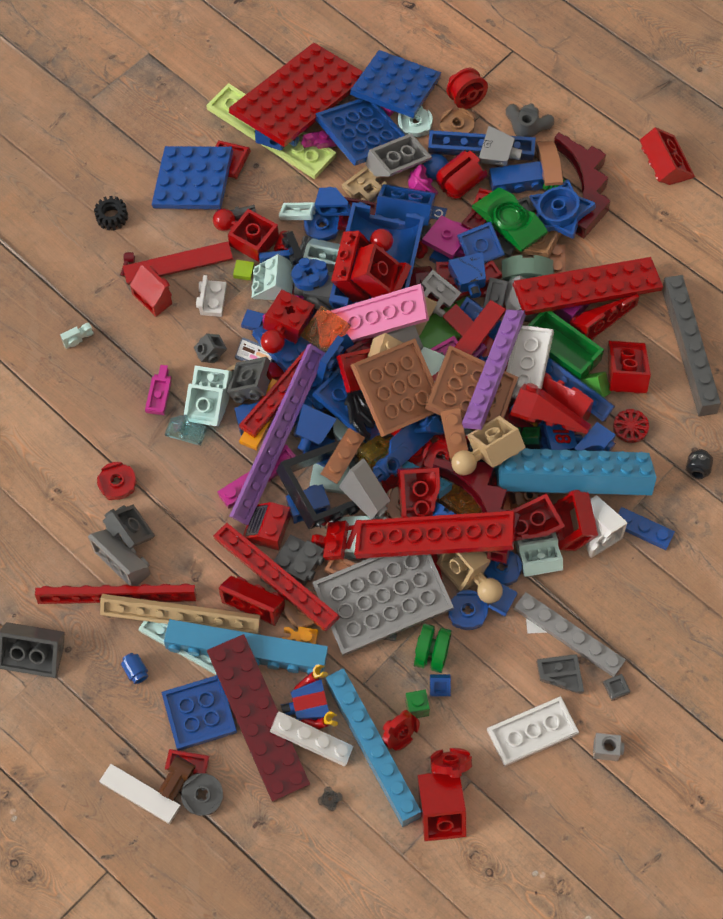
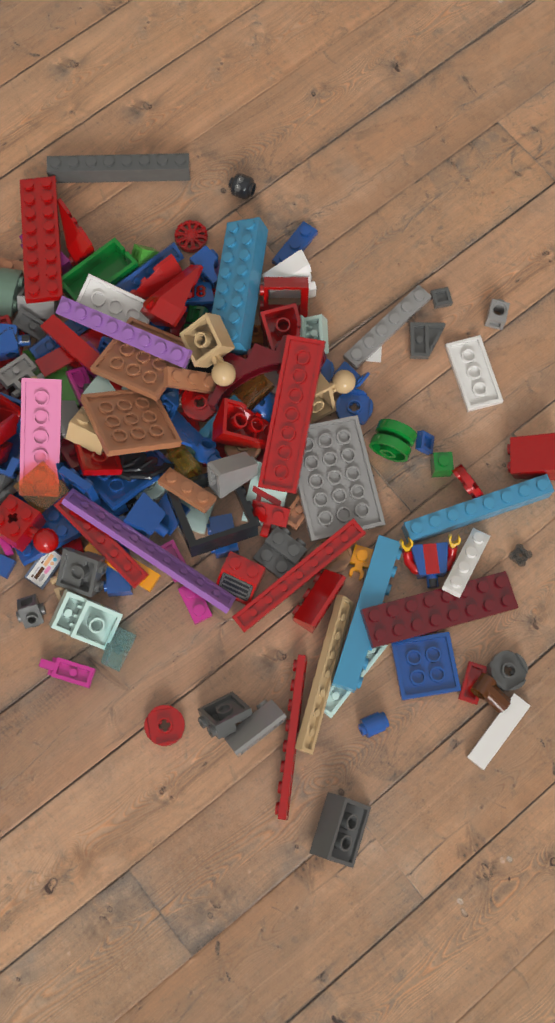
camera: 85 degrees left, 10 degrees up
(451, 763) = (508, 448): red plate -> none
(628, 367) = (131, 224): red slope -> none

